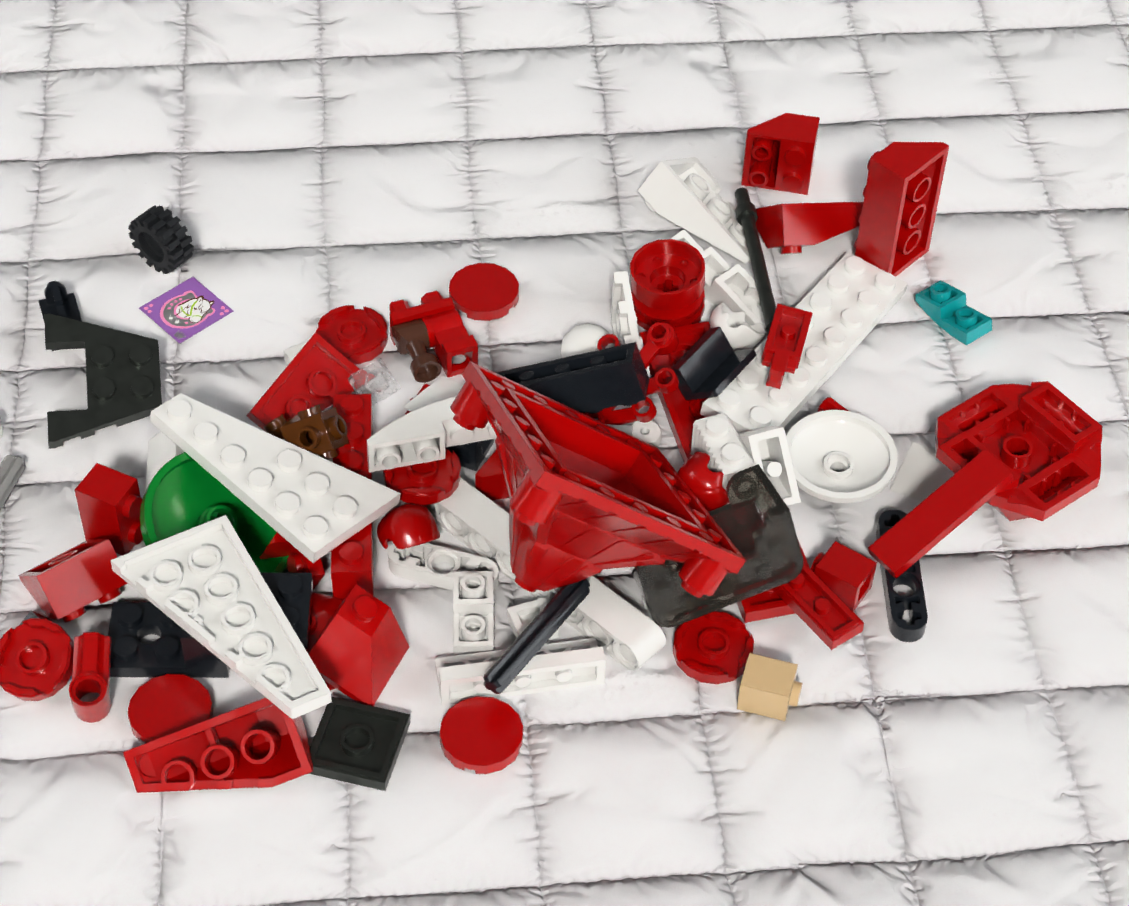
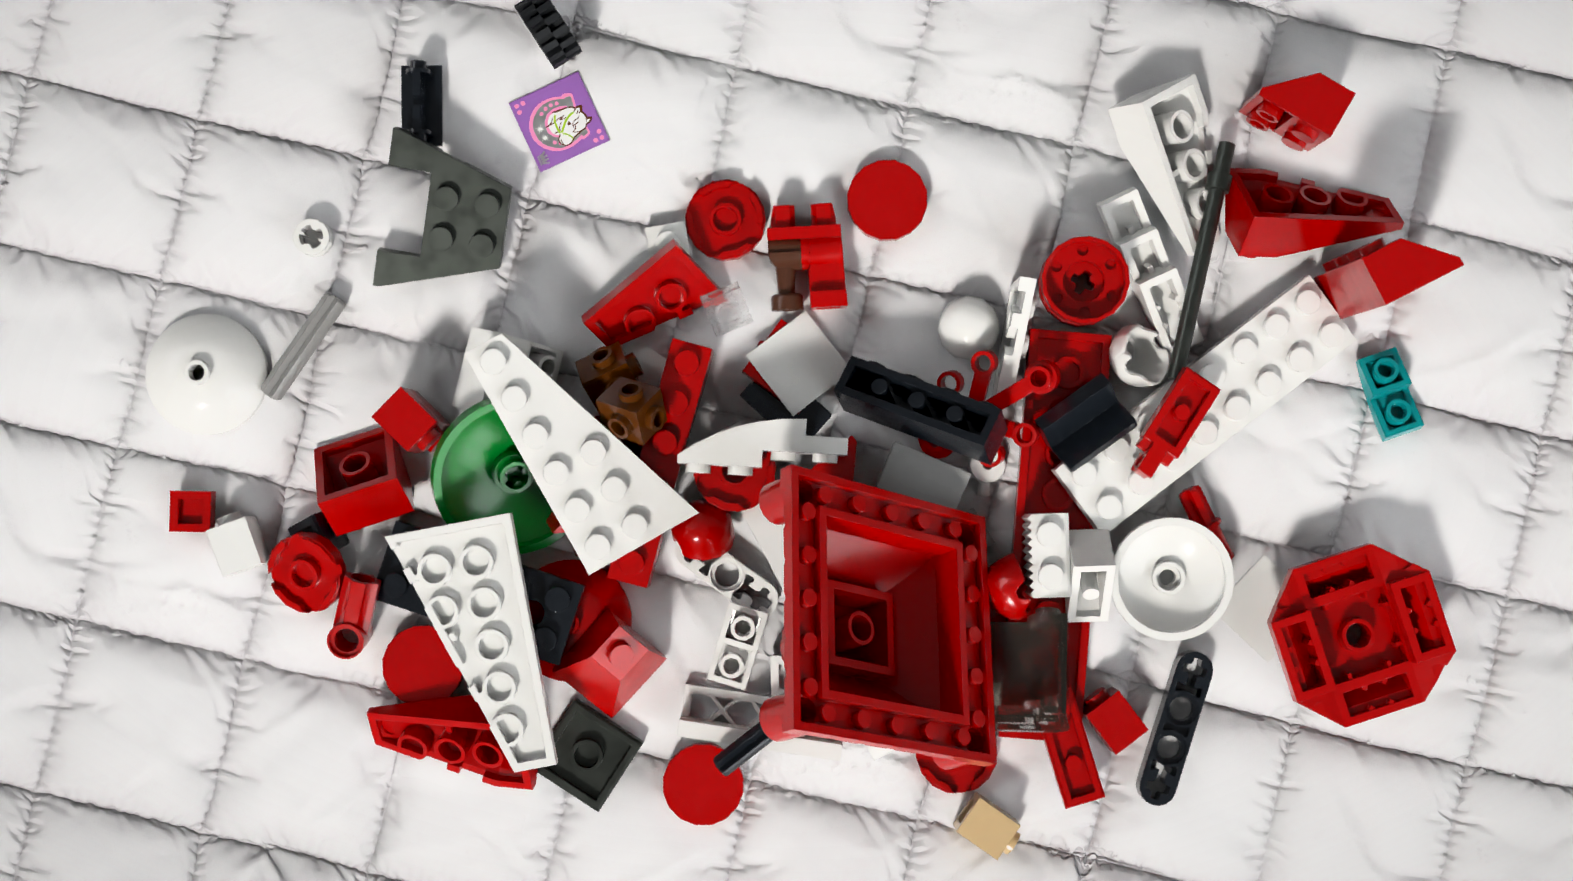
camera: 20 degrees right, 40 degrees up
(940, 513) = (1237, 701): red tile -> none

